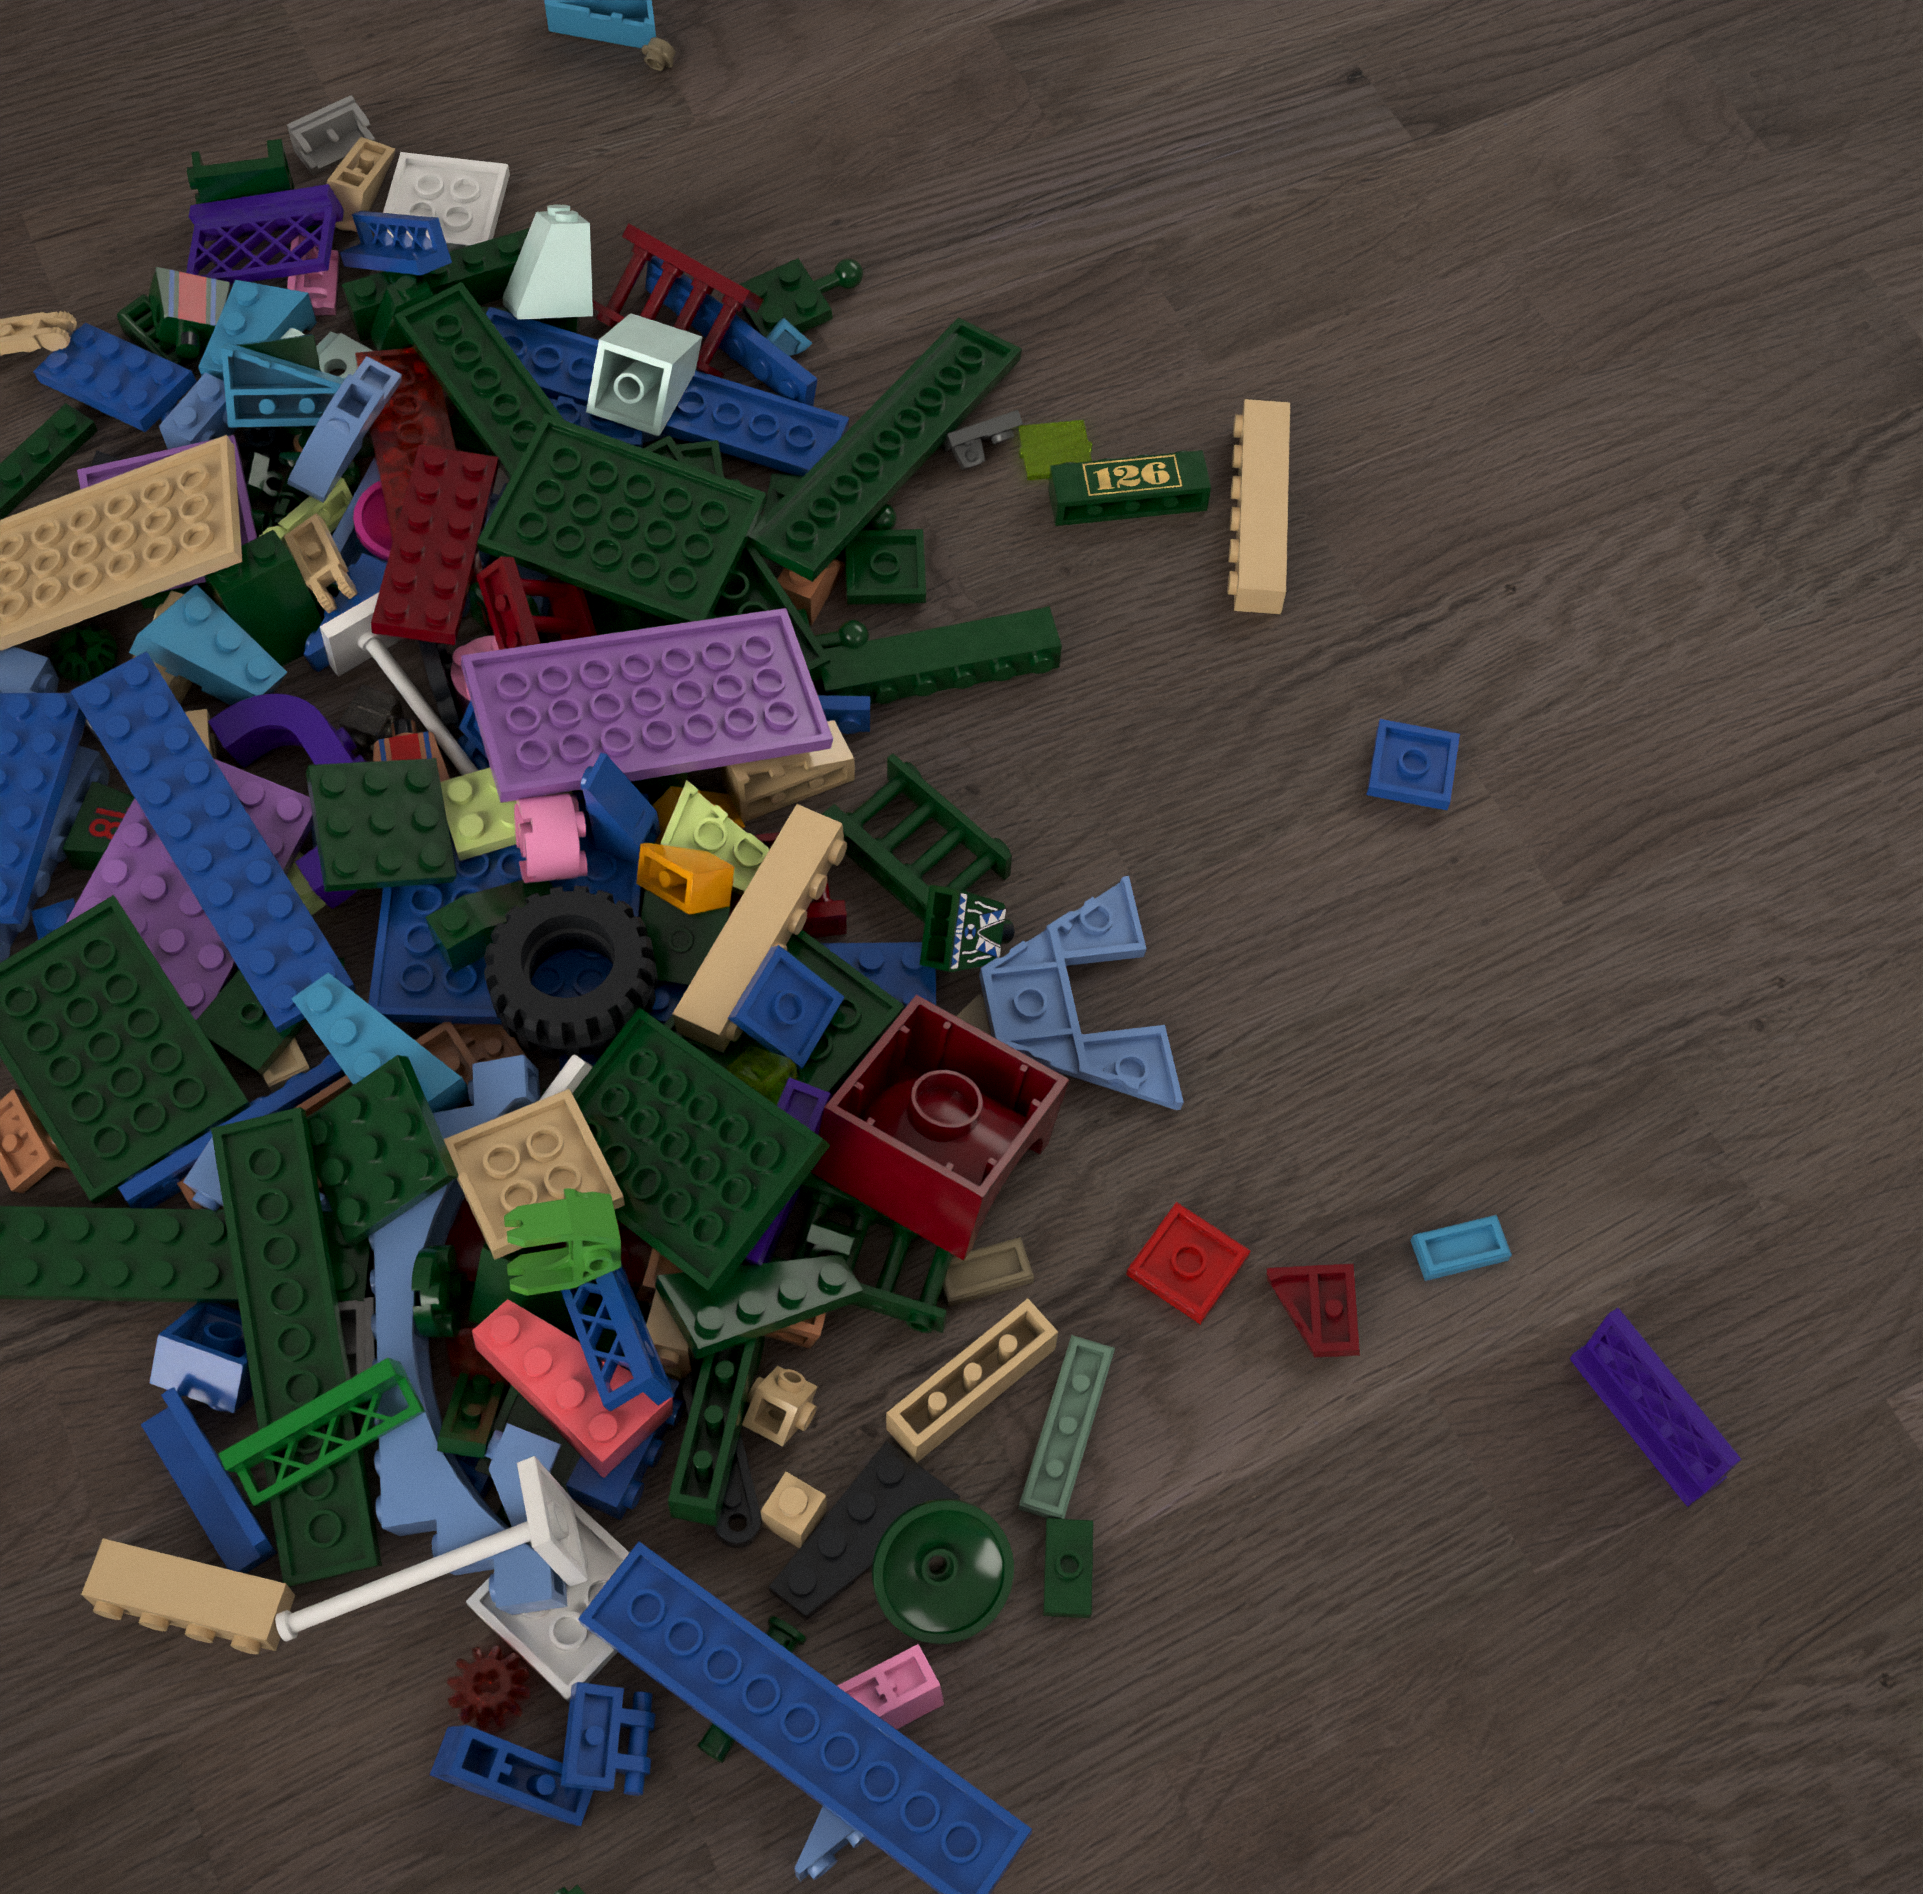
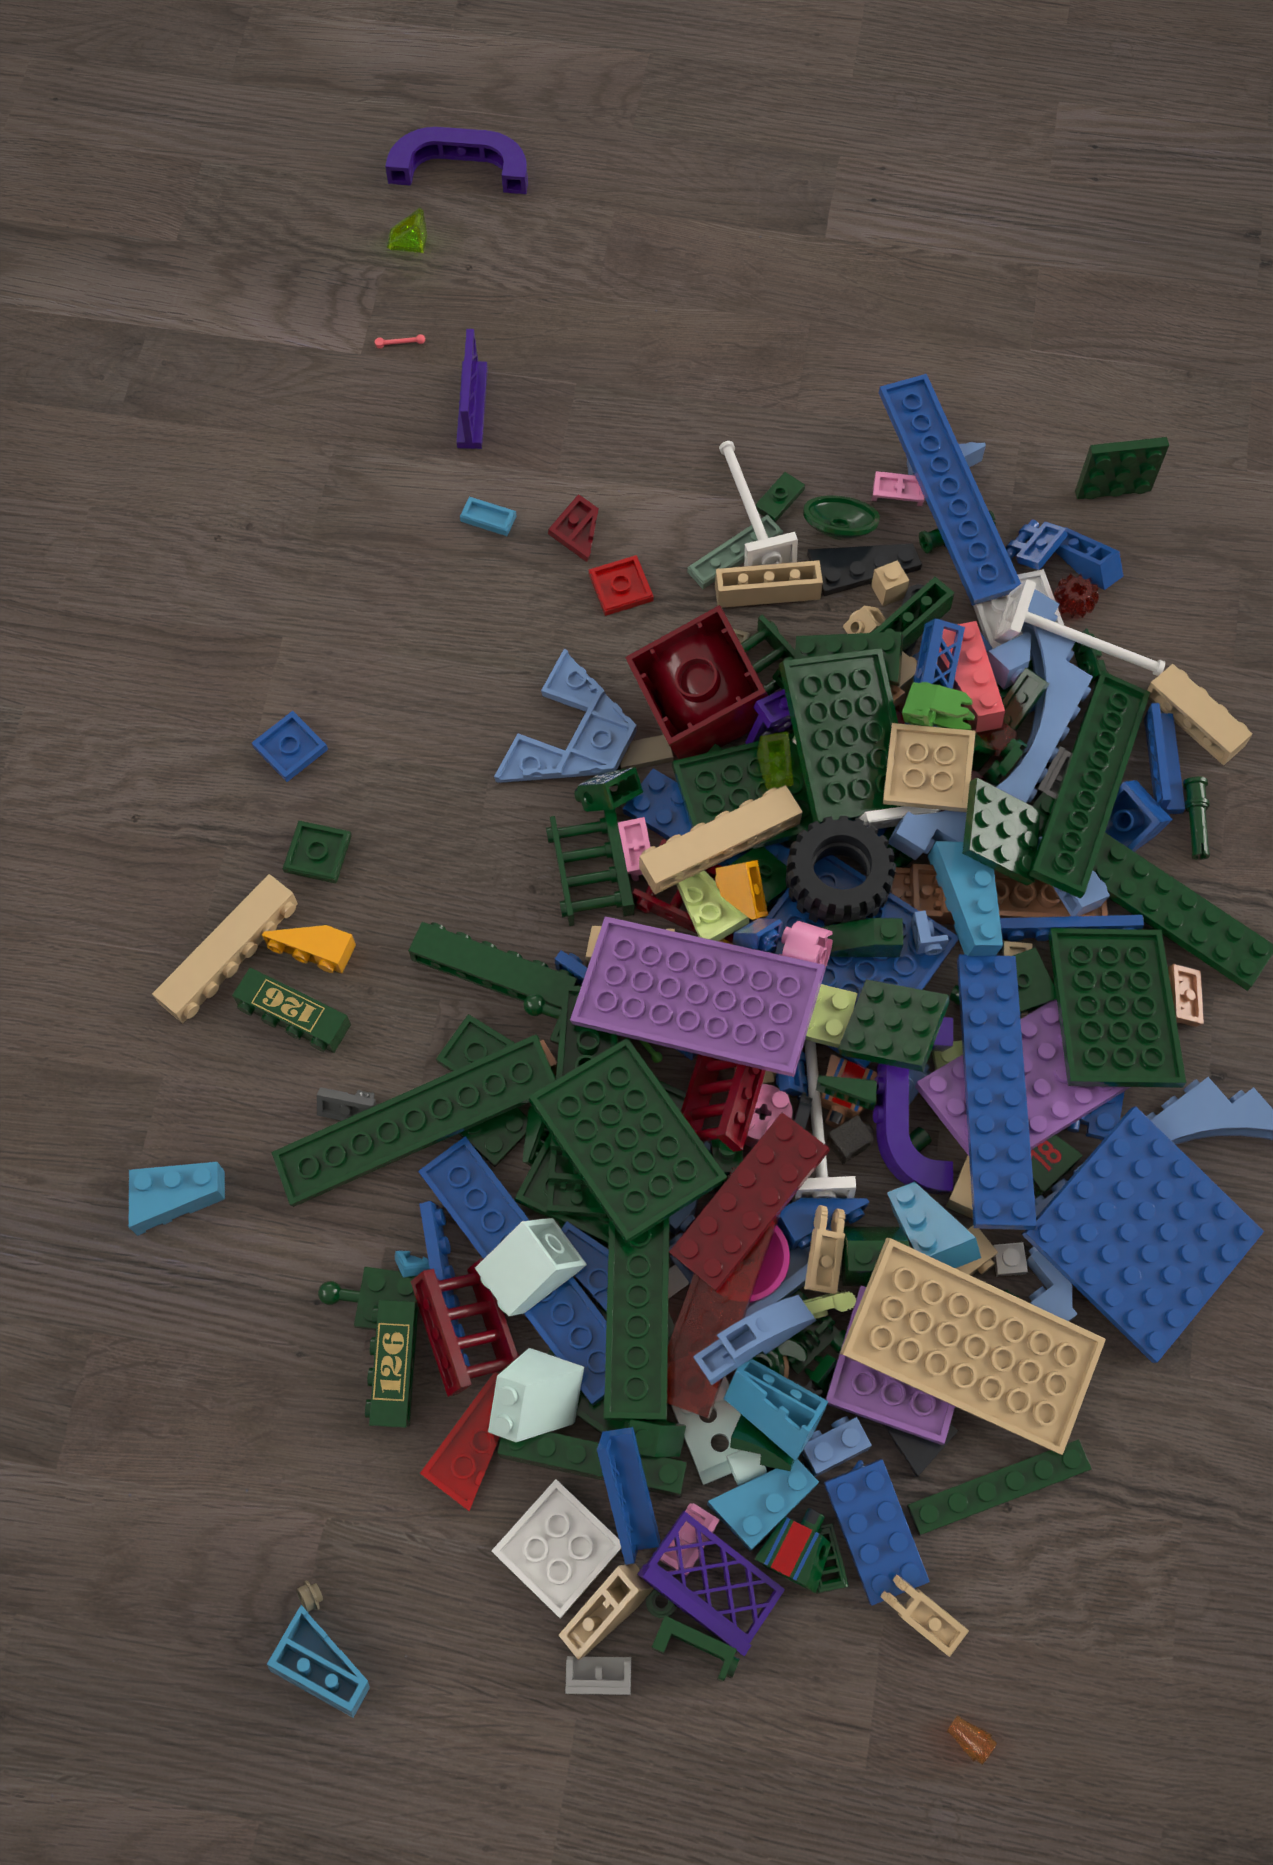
camera: 140 degrees left, 5 degrees up
(123, 1439) = (1197, 806): none -> dark green pin
(290, 766) = (920, 1138): none -> dark green hinge
(315, 1415) = (1099, 728): green fence -> none
(400, 737) = (852, 1090): none -> dark green slope
(407, 965) = (924, 935): none -> medium blue bracket
(423, 1602) = (1087, 659): none -> dark green hinge
(607, 211) = (466, 1451): none -> red wing
(727, 239) = (393, 1363): none -> dark green brick
(786, 1006) = (739, 782): blue plate -> none
(872, 895) = (634, 841): none -> bright pink hinge
(1002, 1423) = (765, 550): none -> white tile
(1052, 445) = (306, 1073): clear neon green piece -> none
(1089, 260) = (172, 1191): none -> dark azure wedge
(1162, 566) = (317, 944): none -> light orange slope
(1262, 667) = (317, 851): none -> dark green plate
(1875, 1436) = (380, 342): none -> coral hinge

